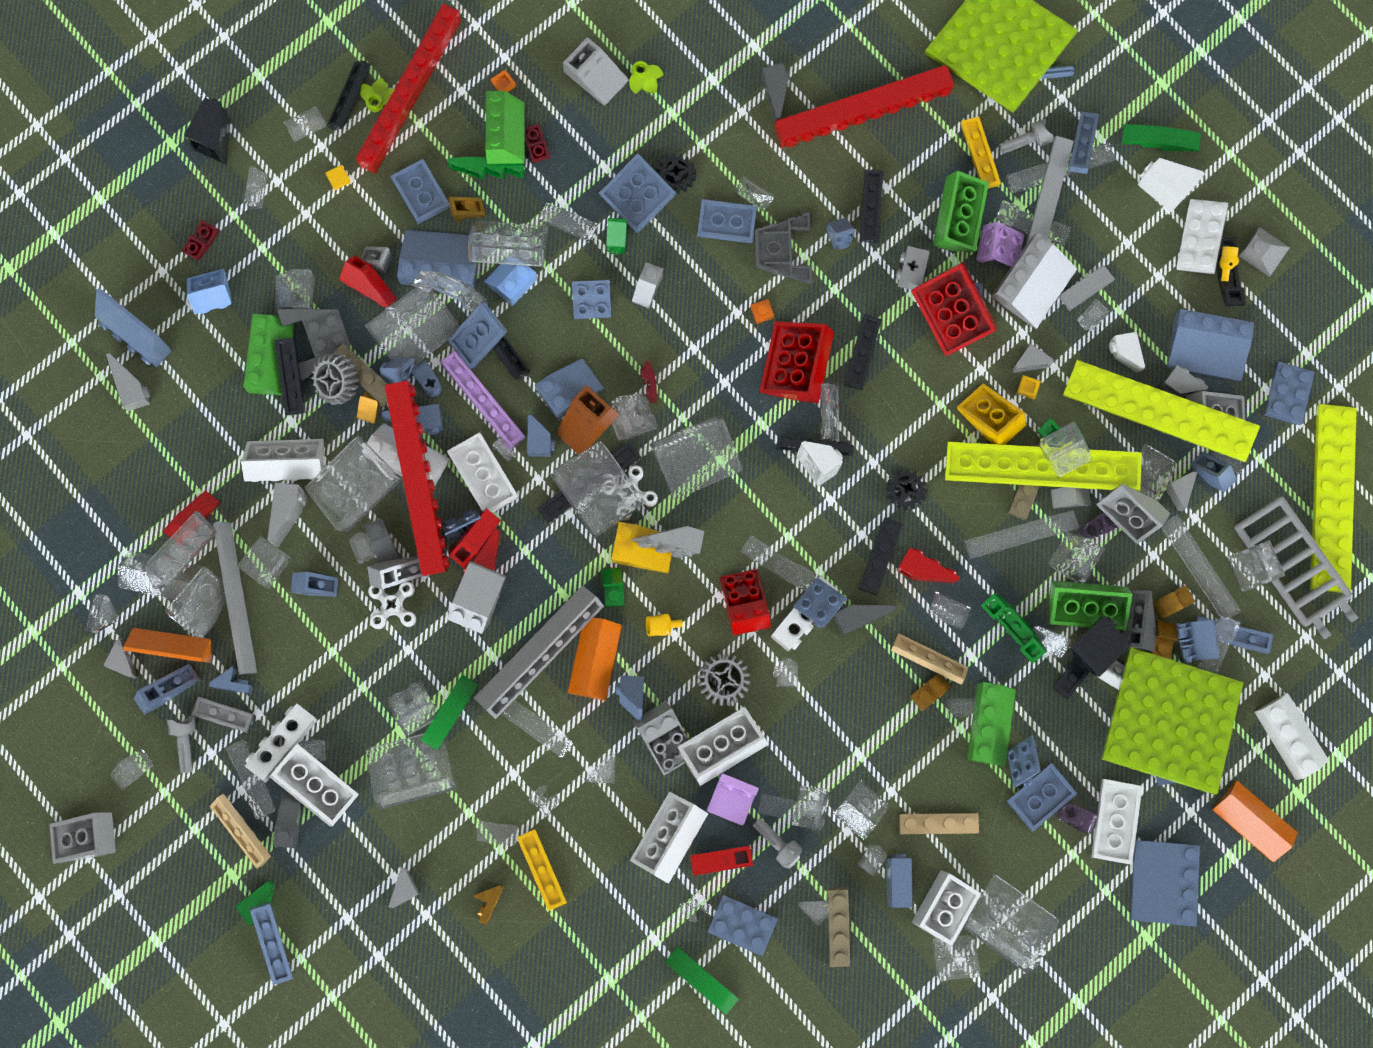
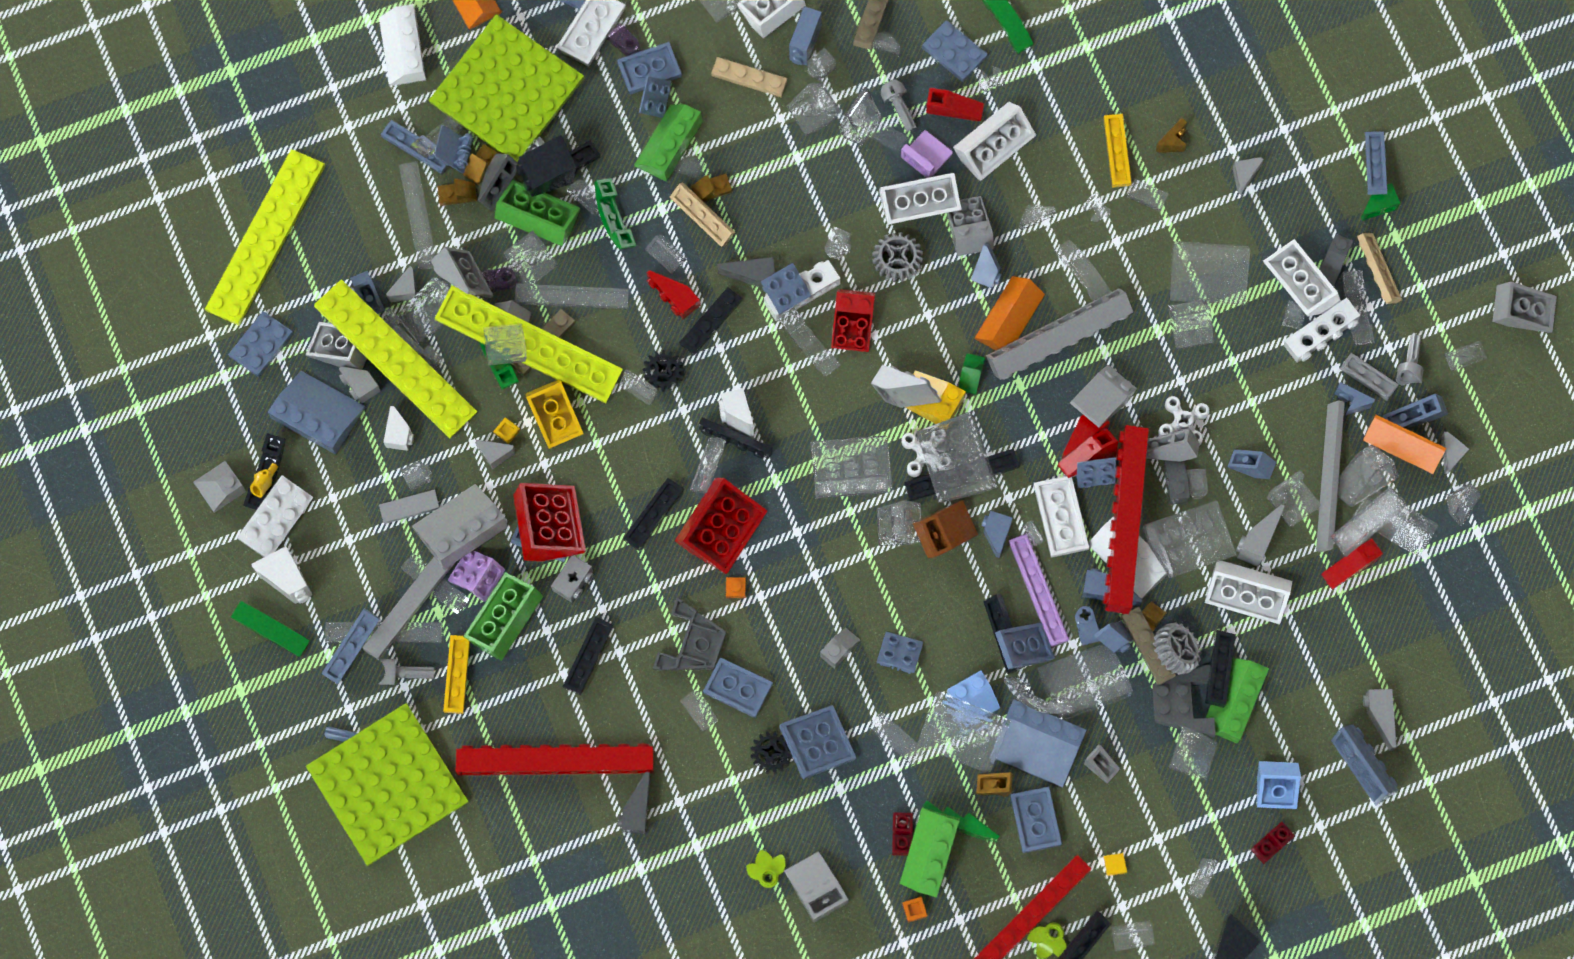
camera: 150 degrees left, 5 degrees down
(363, 278) = (1117, 740): red slope -> none
(449, 712) = (1157, 307): green slope -> none
(563, 385) = (951, 571): sand blue slope -> none
(616, 236) = (854, 703): slope -> none
(649, 378) = (870, 555): dark red slope -> none
(661, 625) = (938, 323): yellow piece -> none
(840, 233) = (630, 634): sand blue slope -> none
(923, 468) = (638, 387): none -> clear slope
(1175, 448) = (427, 353): none -> clear slope
(1256, 566) = (368, 195): clear slope -> none
(1313, 548) = (309, 193): light grey bar -> none

